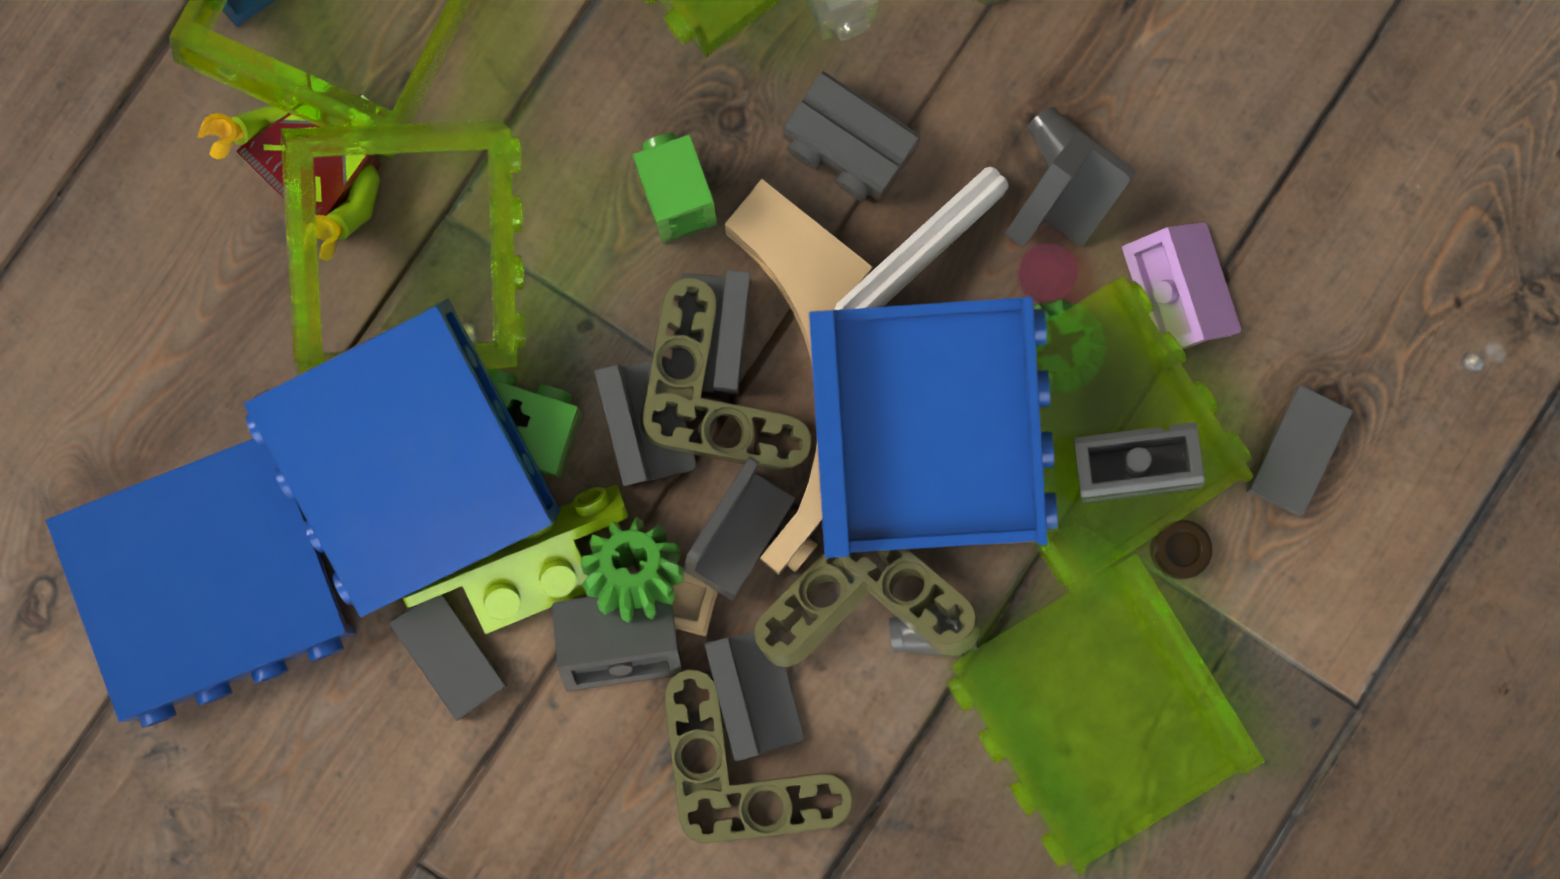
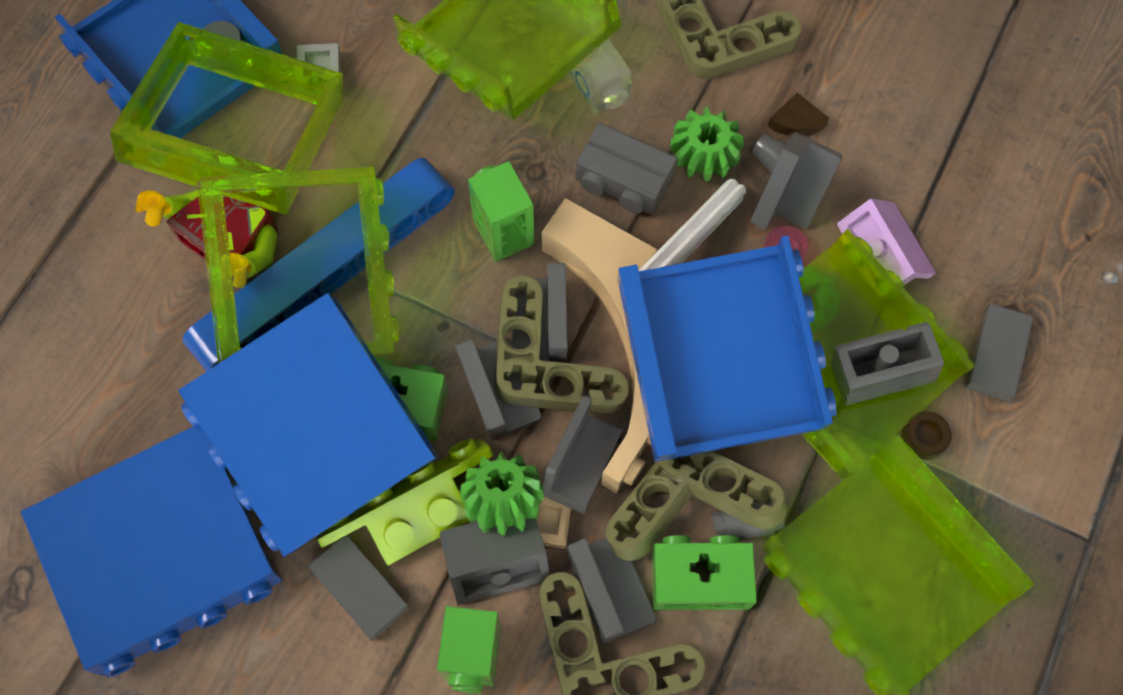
camera: 10 degrees left, 15 degrees down
(440, 224) = (325, 260): none -> blue beam
(571, 756) = (469, 649): none -> bright green brick
(896, 715) = (727, 588): none -> bright green brick
(975, 92) = (707, 144): none -> bright green gear
(1099, 82) = (798, 116): none -> dark brown tile

